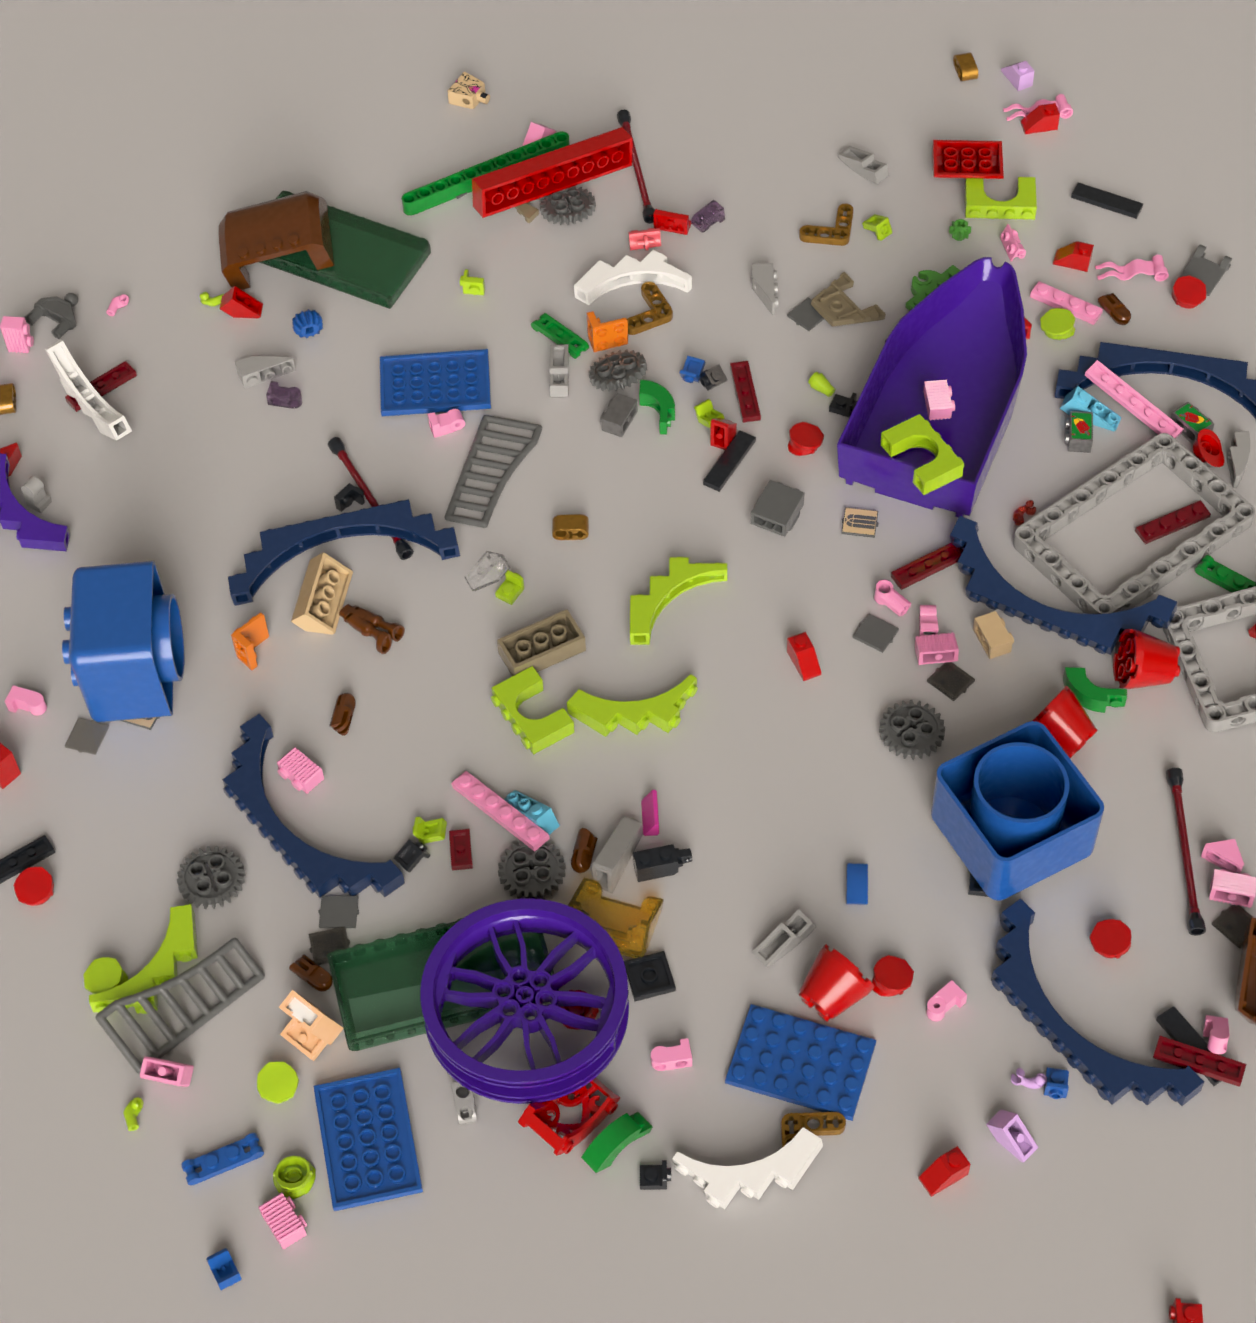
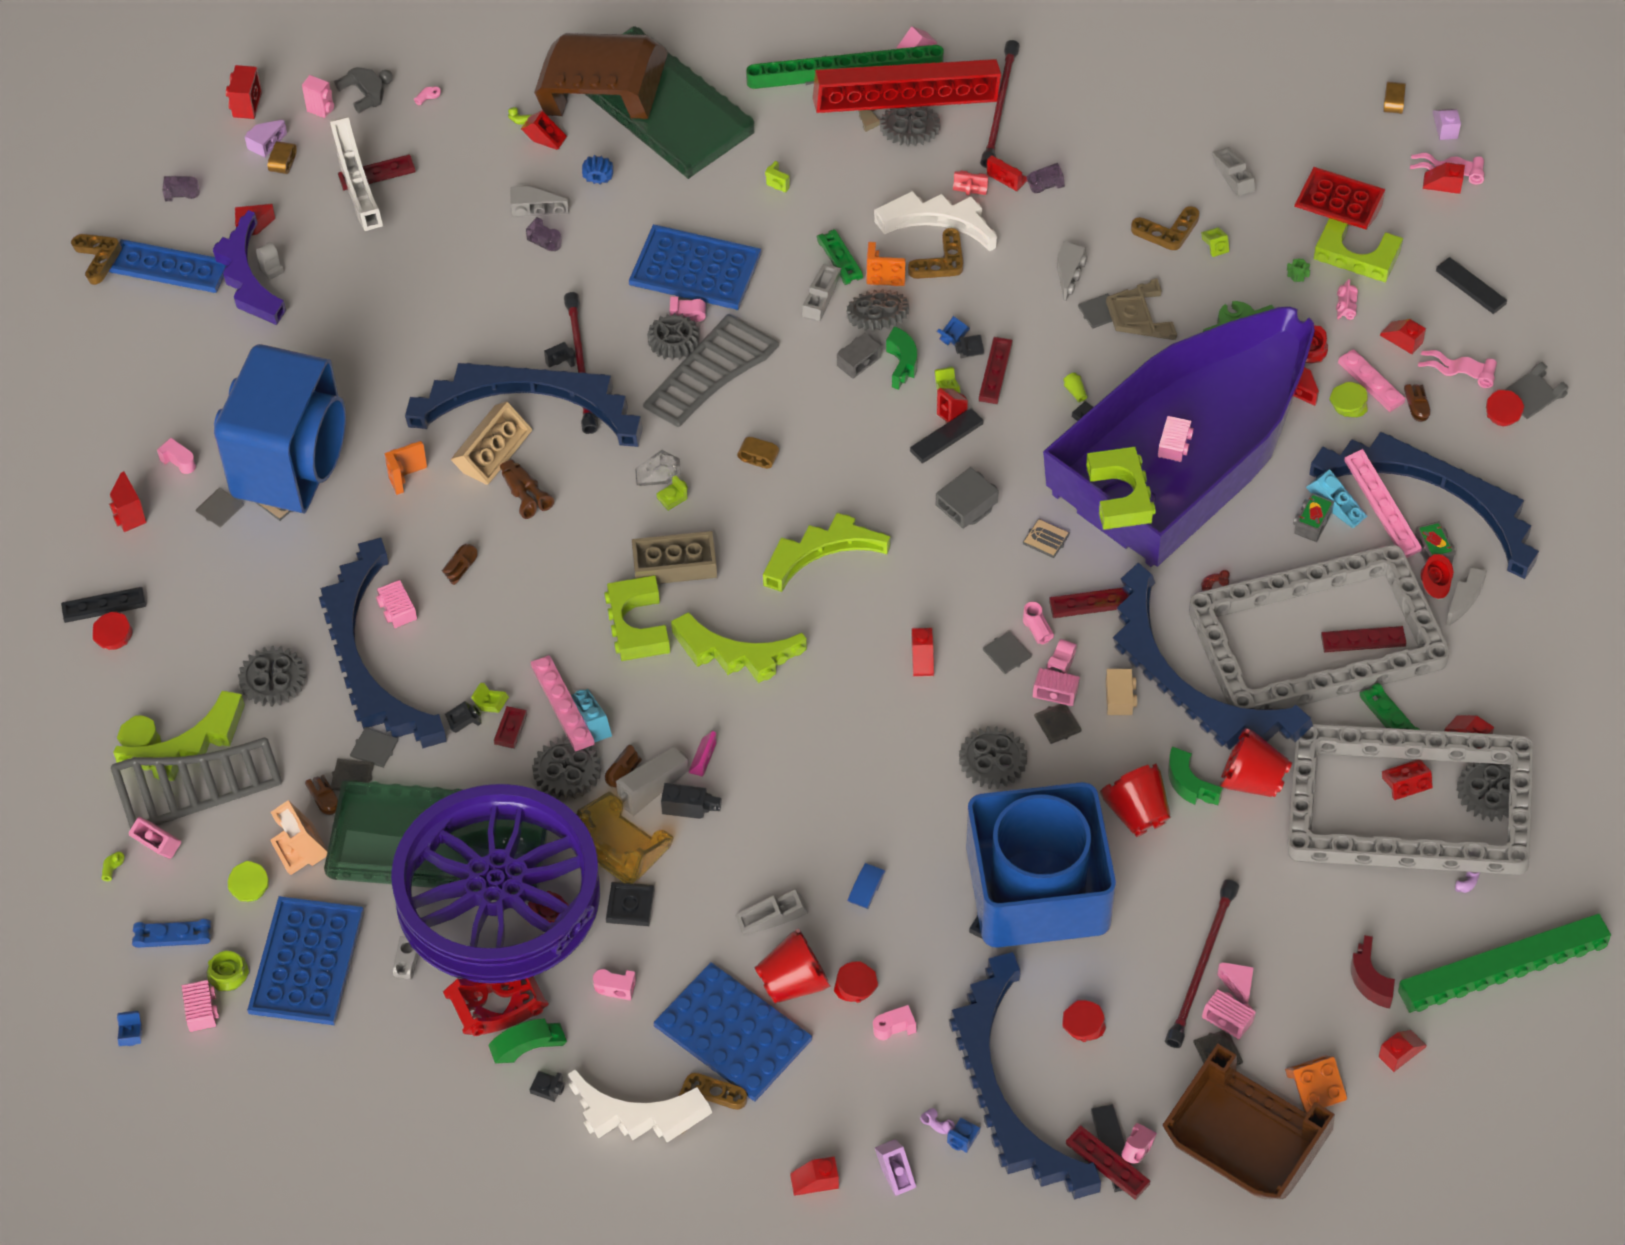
camera: 20 degrees right, 0 degrees up
(444, 449) = (673, 330): none -> dark grey gear
(804, 439) = (1031, 436): red hat -> none

